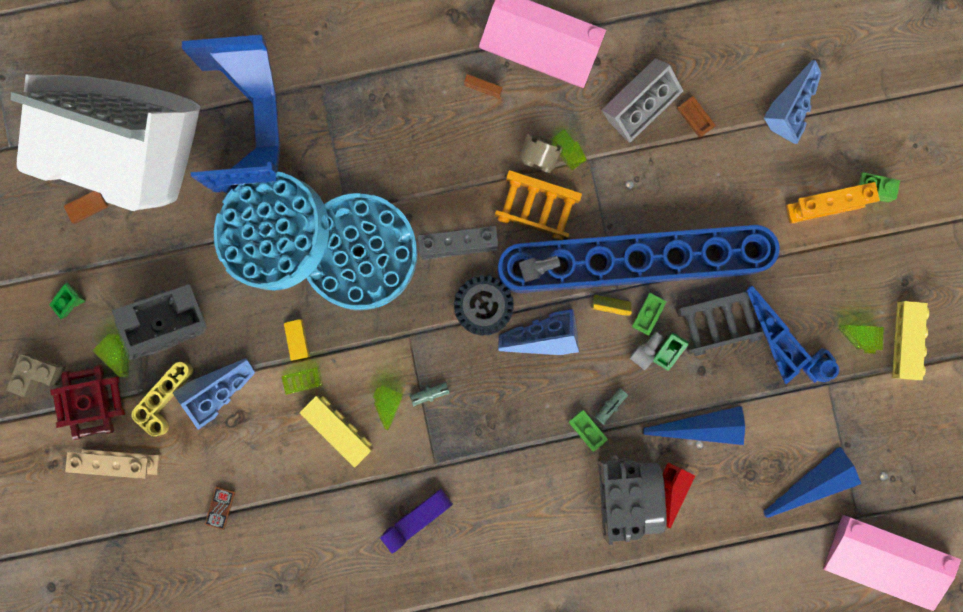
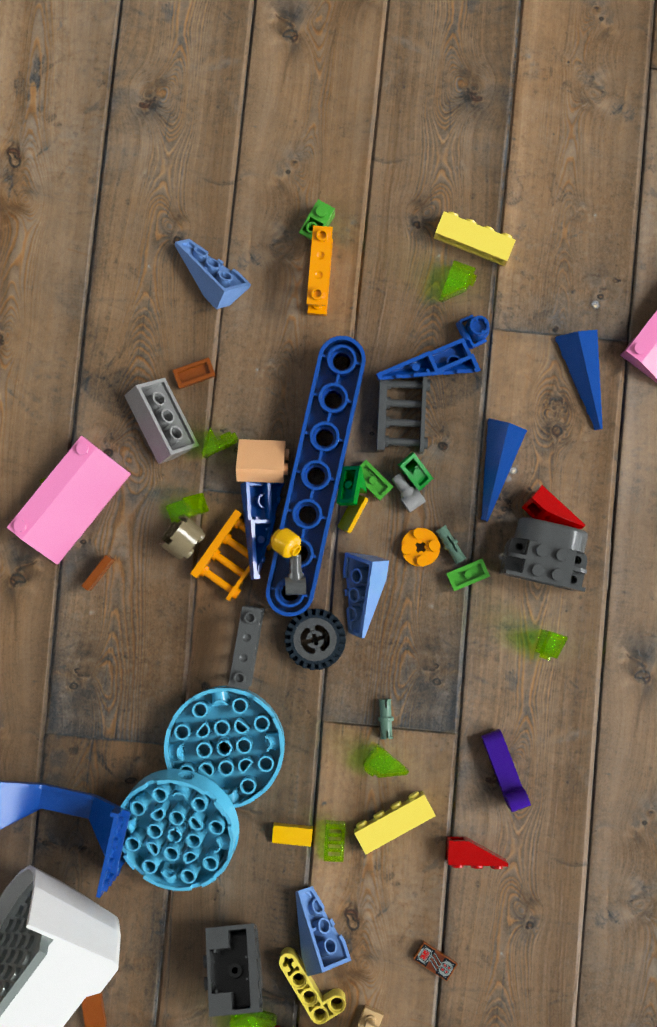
camera: 65 degrees left, 0 degrees up
(329, 509) = (467, 852): none -> red slope
(547, 528) = (550, 644): none -> clear neon green slope
(567, 248) = (286, 542): none -> yellow head
(588, 216) = (259, 511): none -> blue wedge
(594, 368) = (431, 546): none -> light orange plate
(633, 156) = (214, 446): none -> clear neon green slope
(634, 204) = (261, 461): none -> light nougat brick
(638, 295) = (351, 484): none -> green slope

